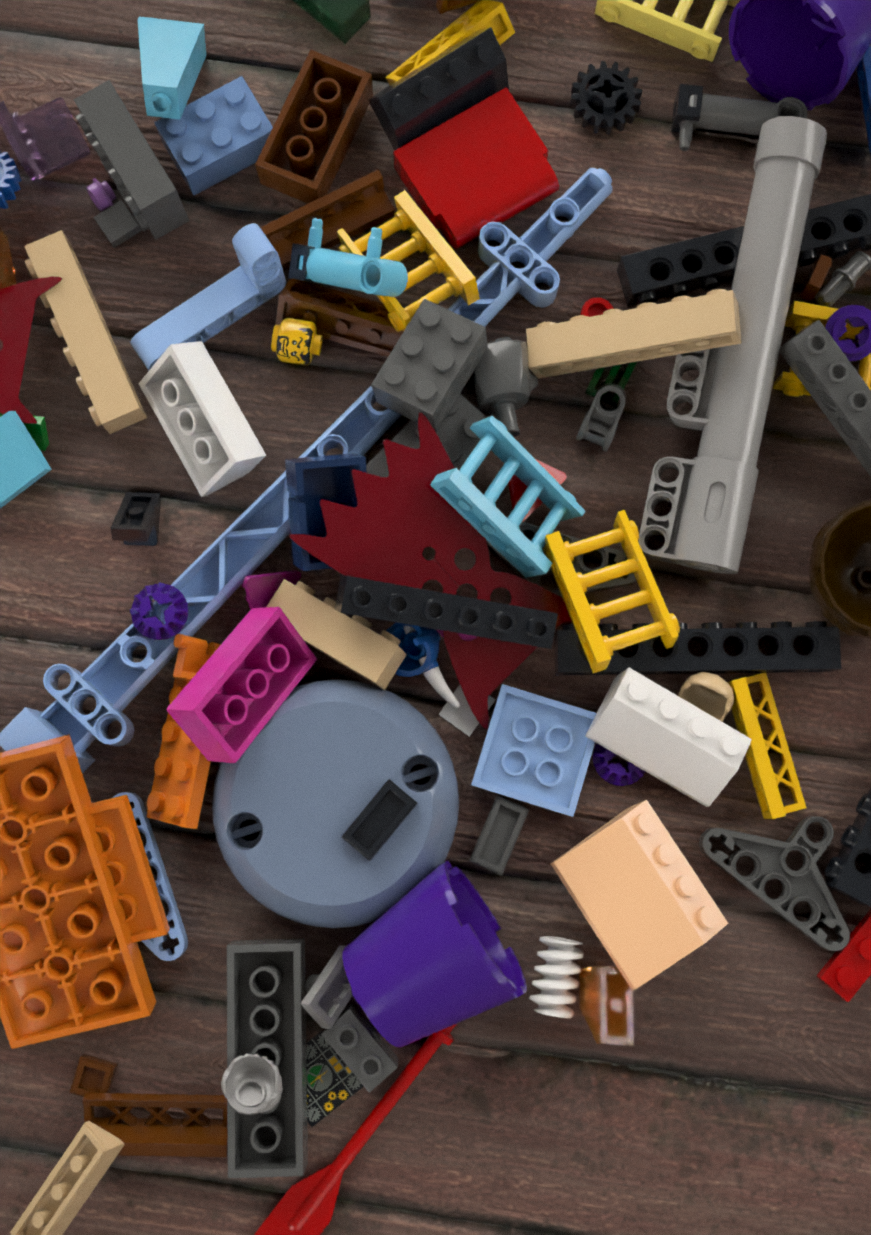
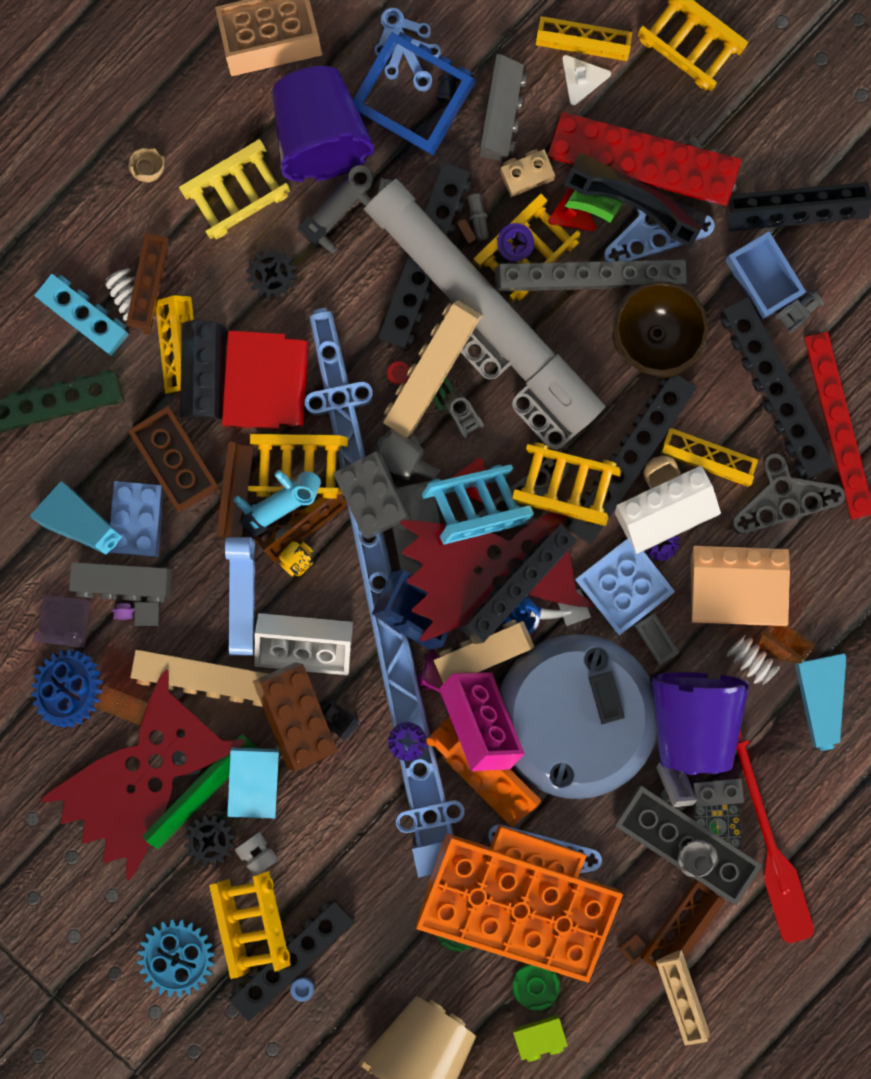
camera: 55 degrees left, 5 degrees up
(102, 460) = (295, 716): none -> reddish brown brick
(573, 1100) = (822, 696): none -> medium azure slope

